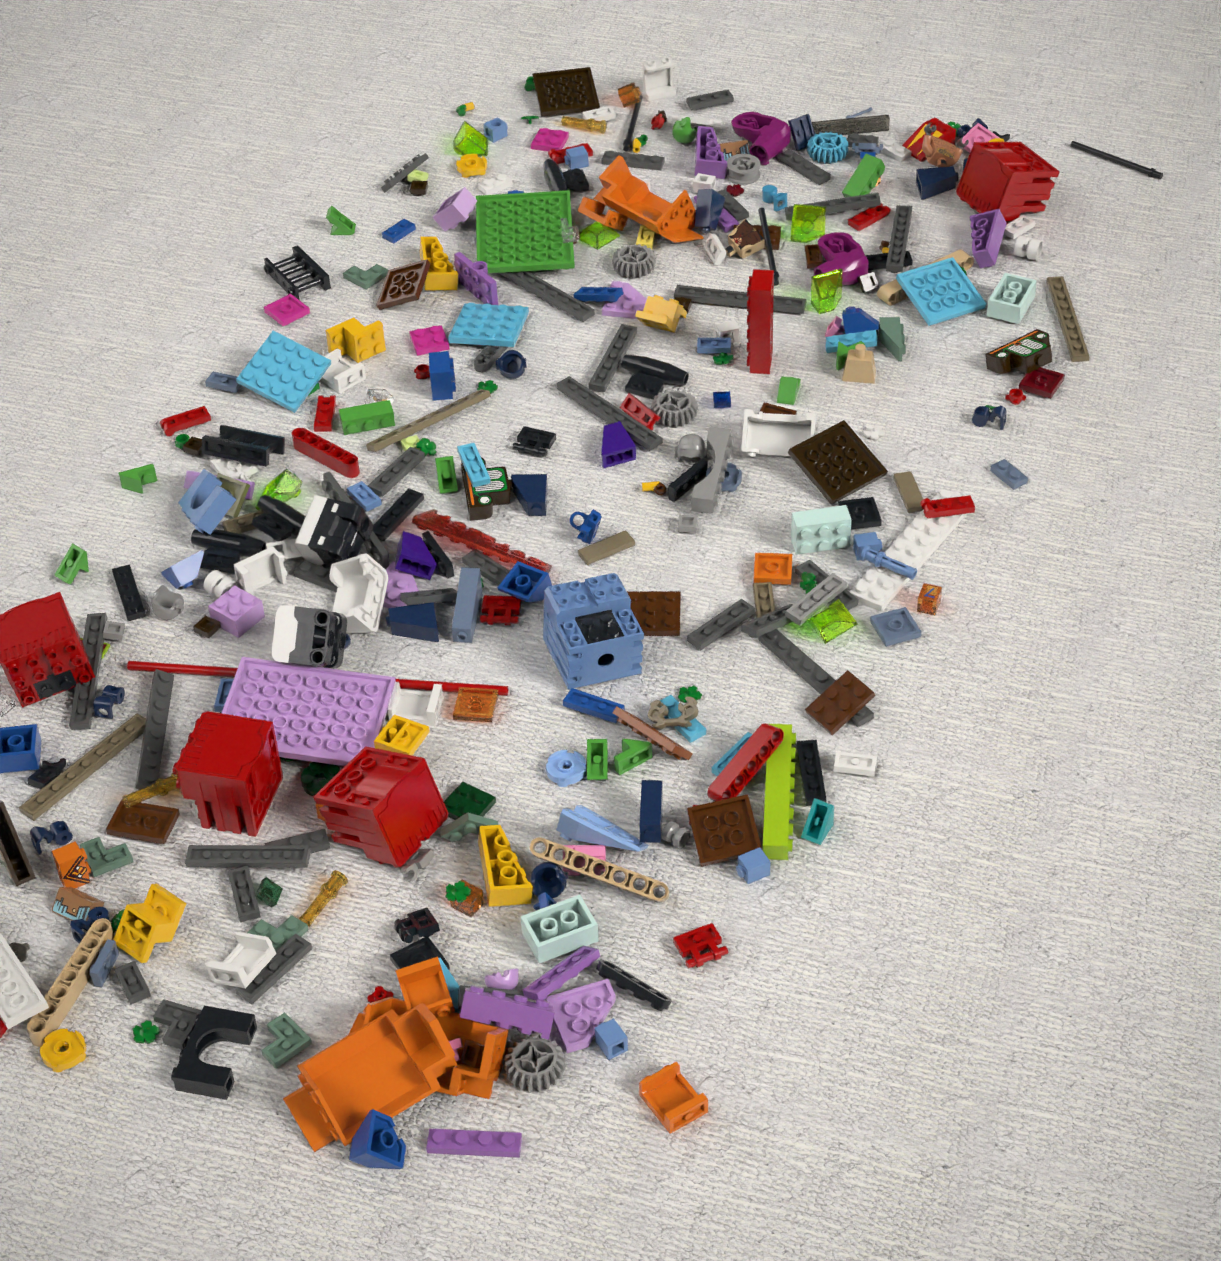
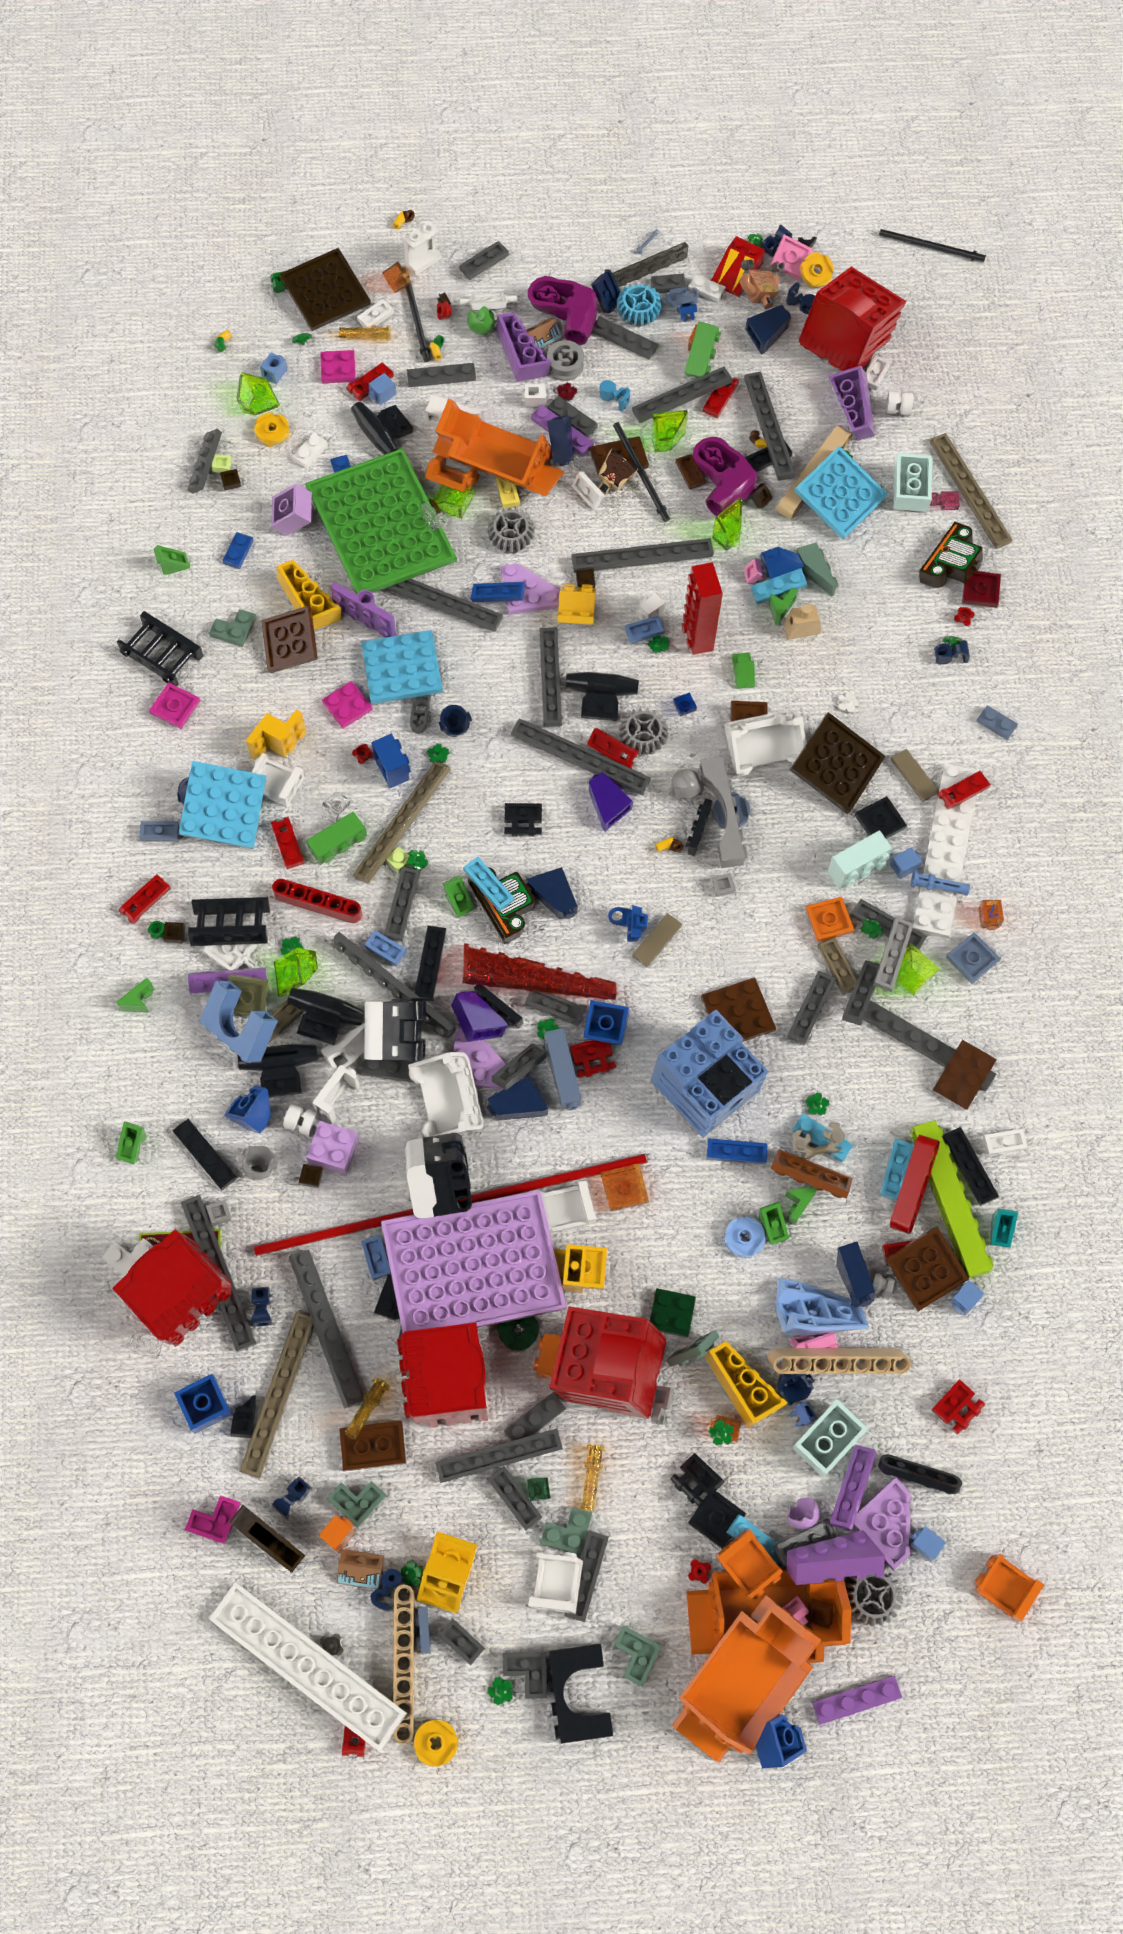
camera: 25 degrees left, 25 degrees up
(1040, 320) = (947, 499): none -> clear pink plate

